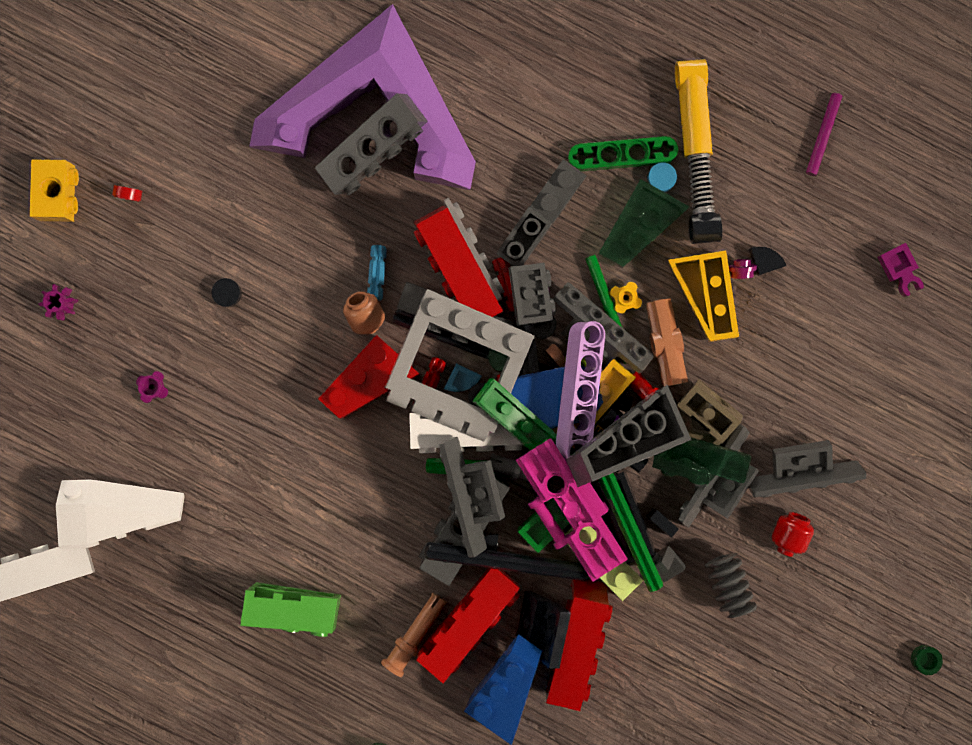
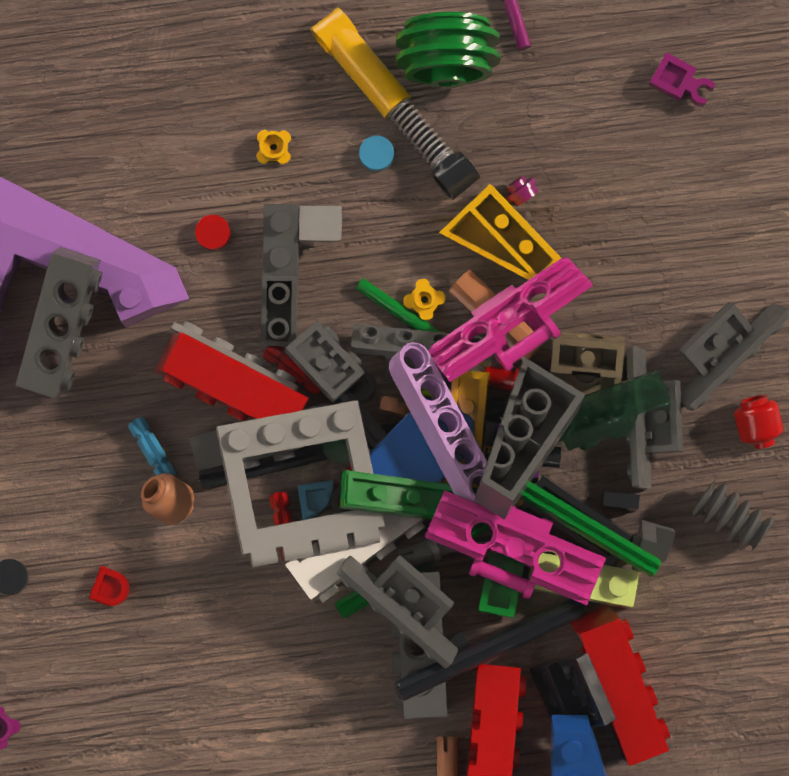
camera: 30 degrees left, 5 degrees down
(287, 345) = (110, 587): none -> red tile
(363, 379) = (214, 566): red wedge -> none
(516, 155) = (212, 232): none -> red tile
(591, 199) = (319, 224): none -> light grey panel
(605, 124) = (265, 141): none -> yellow plate
(623, 158) = (317, 154): green beam -> none
(640, 222) = (386, 214): clear green wing -> none
(675, 344) = (505, 311): none -> dark pink piece
(761, 138) = (447, 49): none -> green wheel
(766, 259) = (539, 164): black tile -> none

